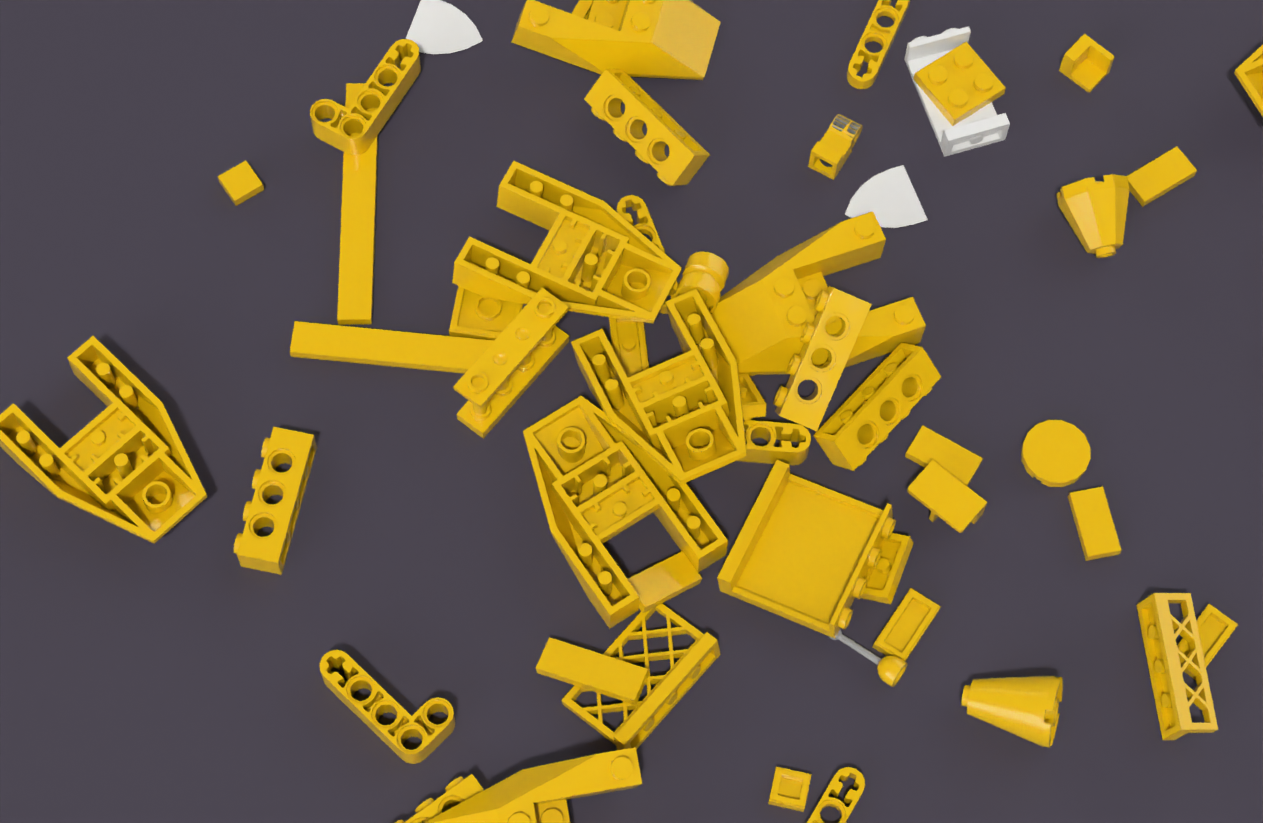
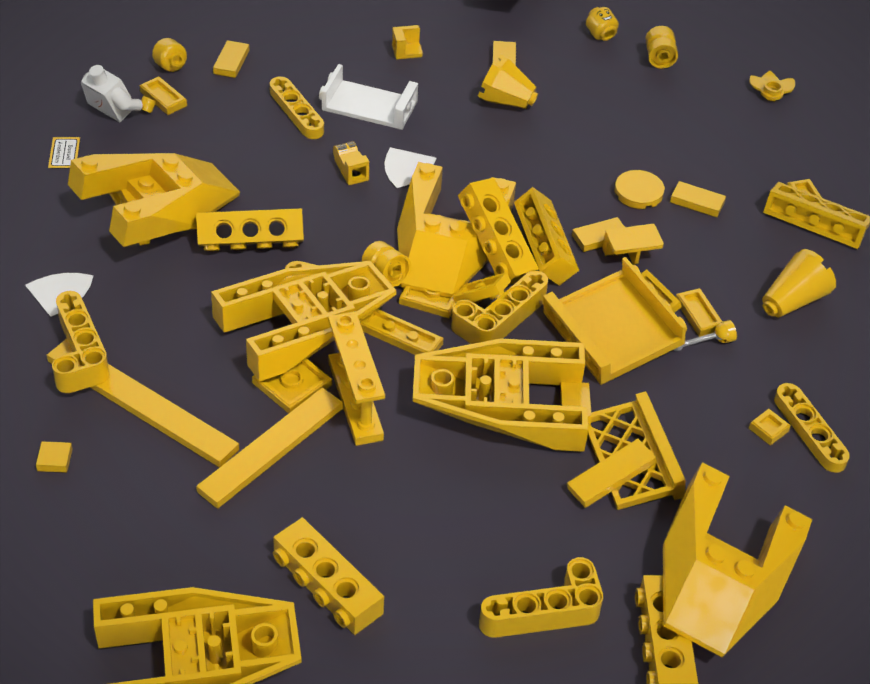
camera: 55 degrees left, 20 degrees down
(681, 409) = (472, 304): yellow wedge -> none
(959, 83) = (365, 94): yellow plate -> none

